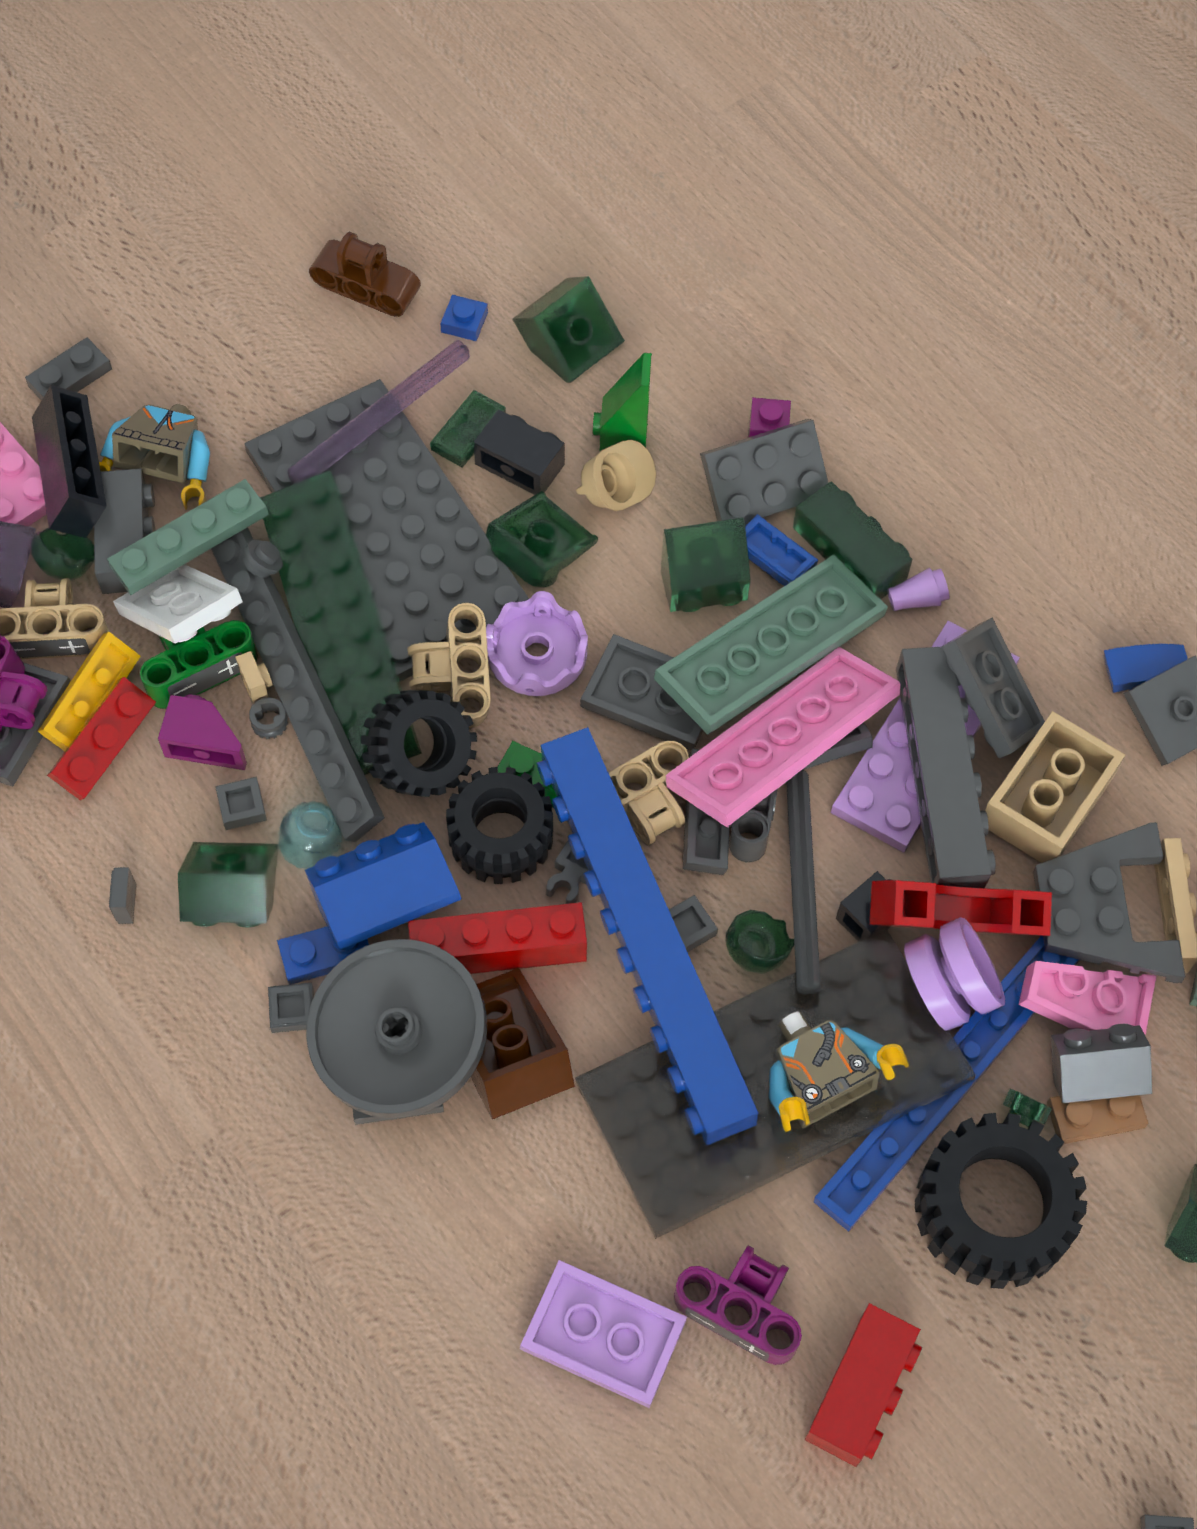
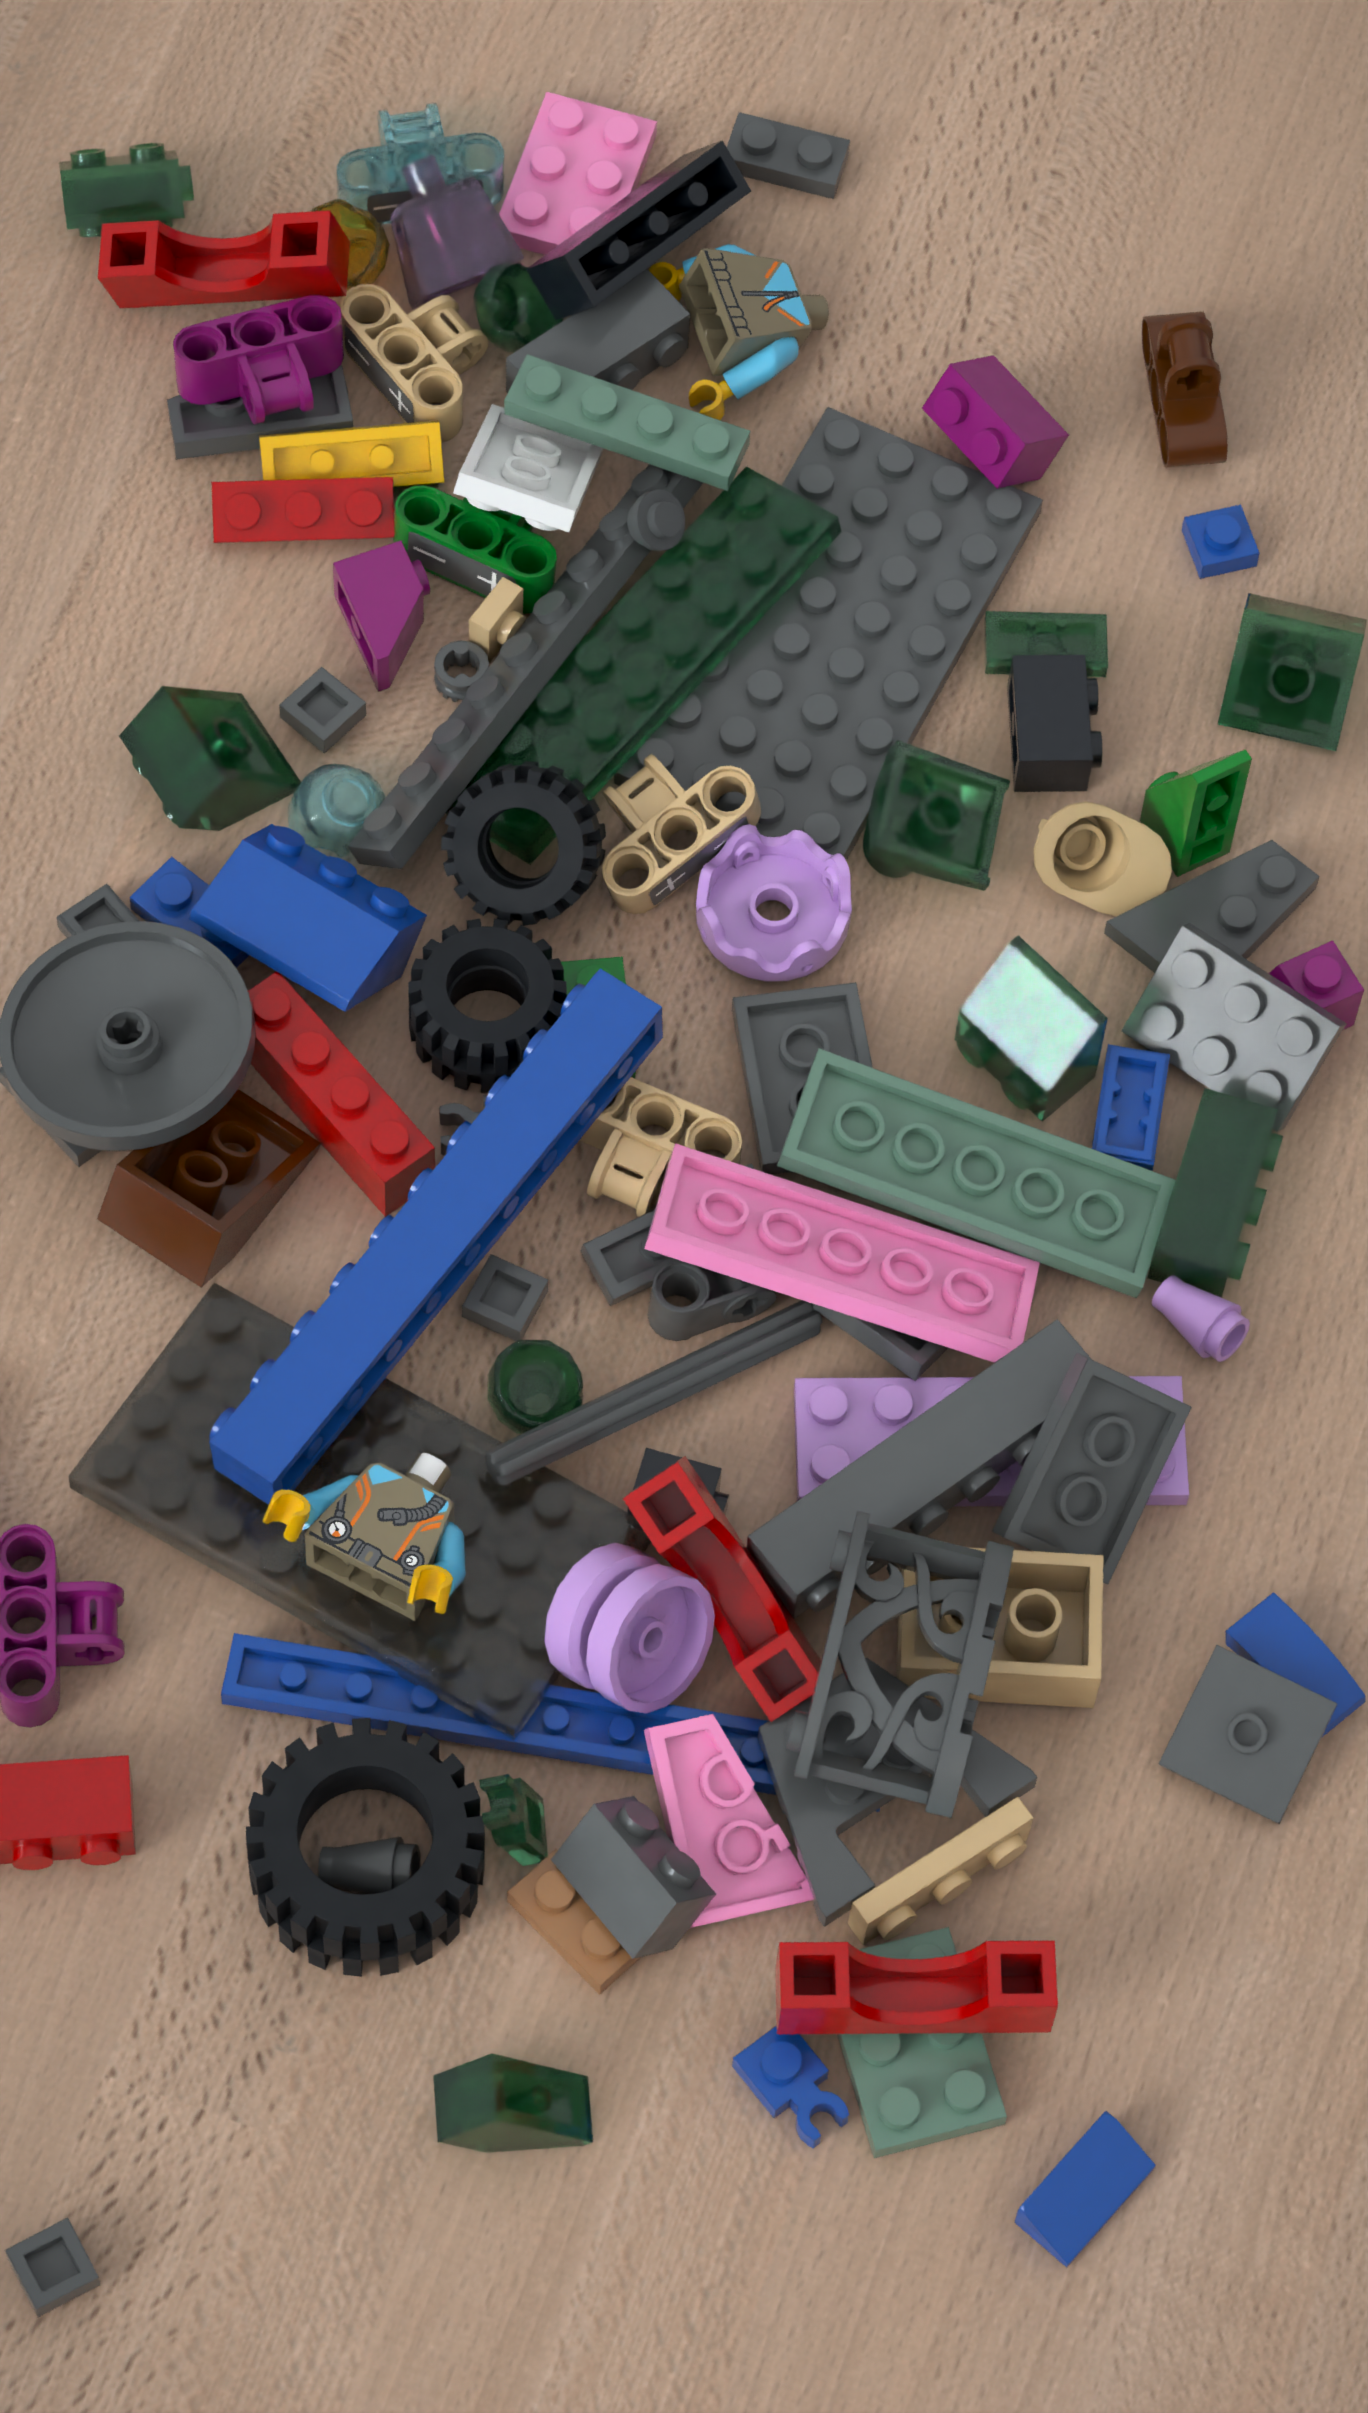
camera: 55 degrees right, 0 degrees up
(122, 895) = (114, 659): dark grey tile -> none
(320, 369) = (995, 421): none -> magenta brick
(379, 413) = (980, 526): clear purple axle -> none
(681, 438) = (1232, 903): none -> dark grey wing
(1009, 1204) = (369, 1865): none -> dark grey cone
(1061, 781) = (972, 1592): none -> dark grey fence

